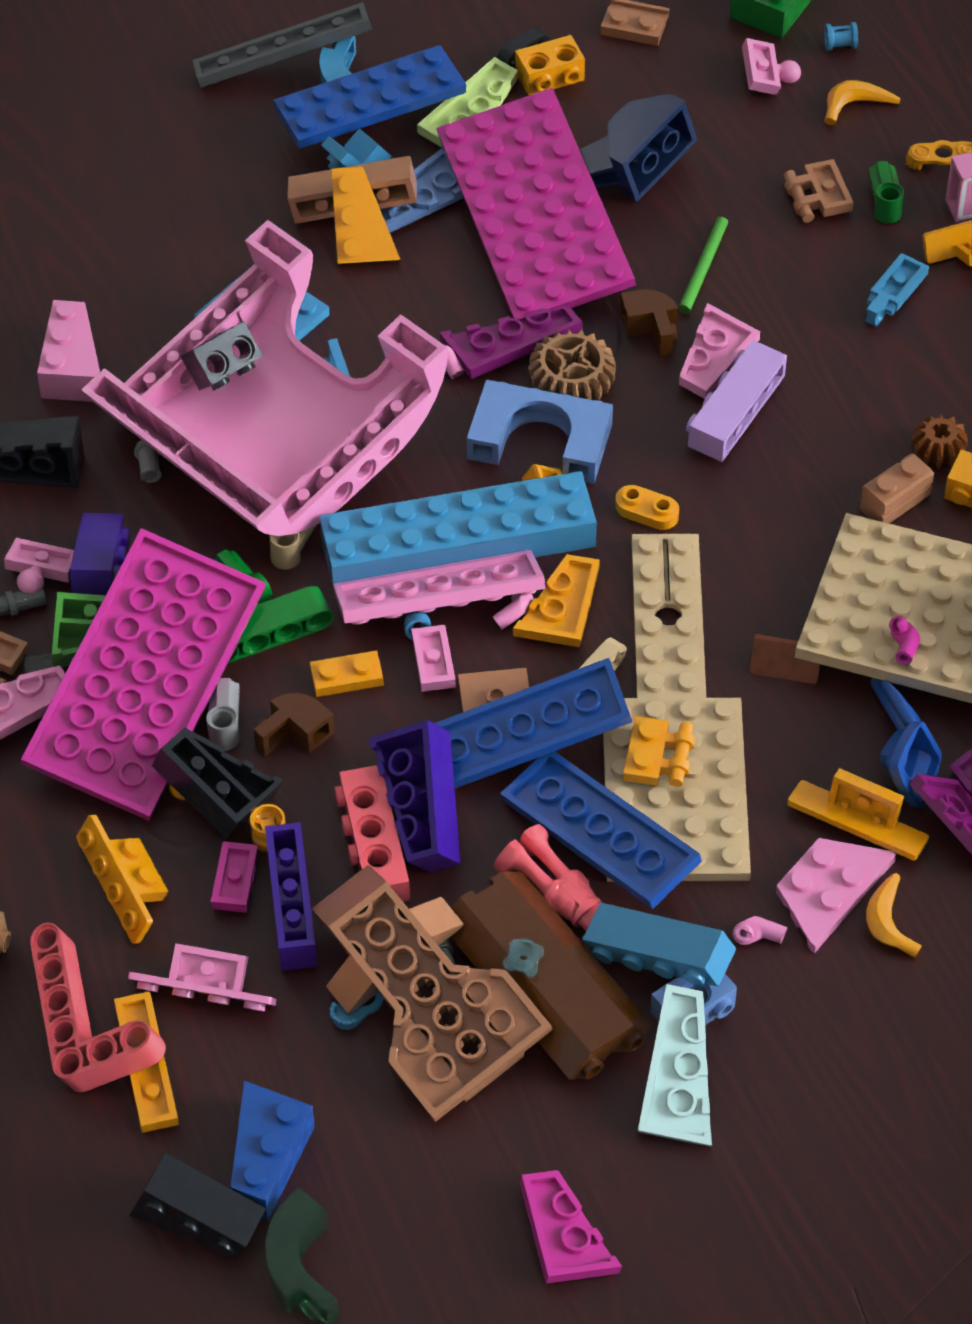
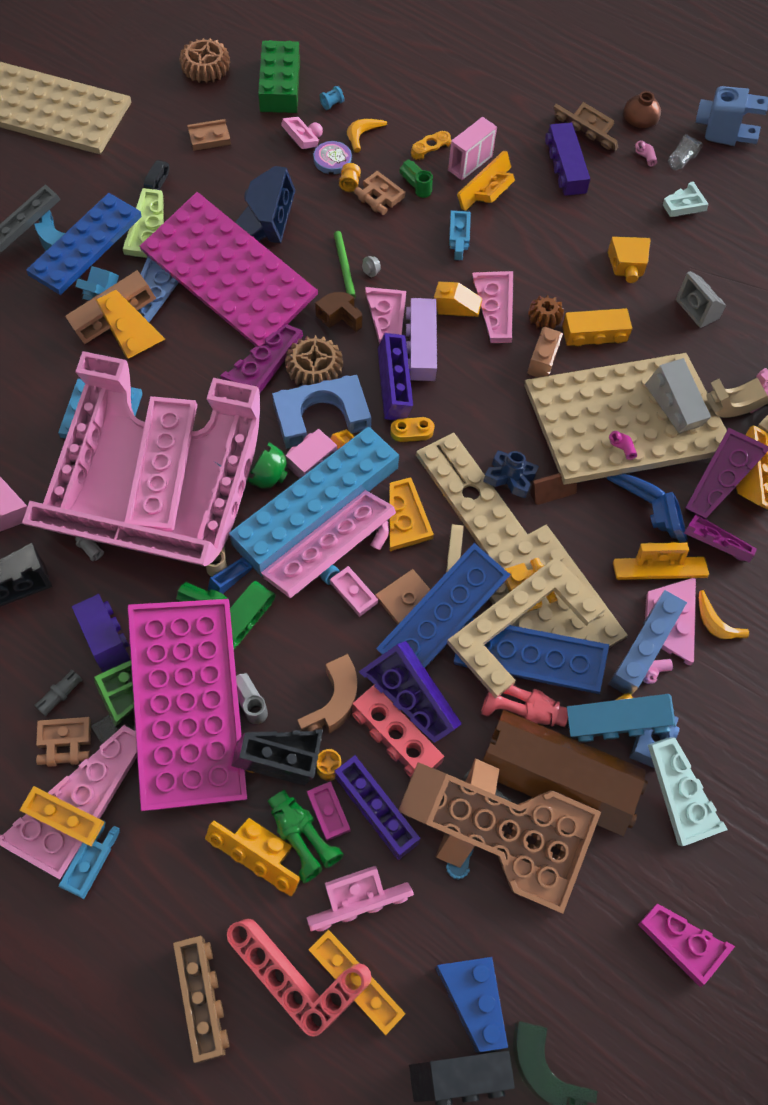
camera: 35 degrees left, 10 degrees up
(37, 561) = (60, 654): bright pink plate -> none
(183, 865) = (293, 821): none -> green piece
(220, 353) = (97, 452): brick -> none
(287, 394) = (161, 463): none -> bright pink plate
(293, 571) = (229, 576): none -> blue piece
(295, 717) = (300, 676): reddish brown brick -> none
(318, 775) = (337, 711): none -> nougat arch
(346, 673) = (306, 628): light orange plate -> none
(422, 466) = (269, 468): none -> green cylinder
(488, 469) = (310, 453): none -> bright pink brick
(526, 948) = (558, 767): clear light blue plate -> none
(530, 770) = (470, 640): none -> tan plate
(550, 65) = (178, 180): light orange brick -> none
(663, 429) = (395, 376): none -> dark purple brick
(736, 280) = (371, 266): none -> light grey plate
(738, 614) = (513, 471): none -> dark blue plant
(786, 117) = (331, 156): none -> tile
(786, 848) = (648, 643): none -> medium blue arch
(793, 149) = (349, 177): none -> light orange wheel
(820, 370) = (456, 299): none -> light orange slope
(883, 394) = (497, 303): none -> bright pink wing

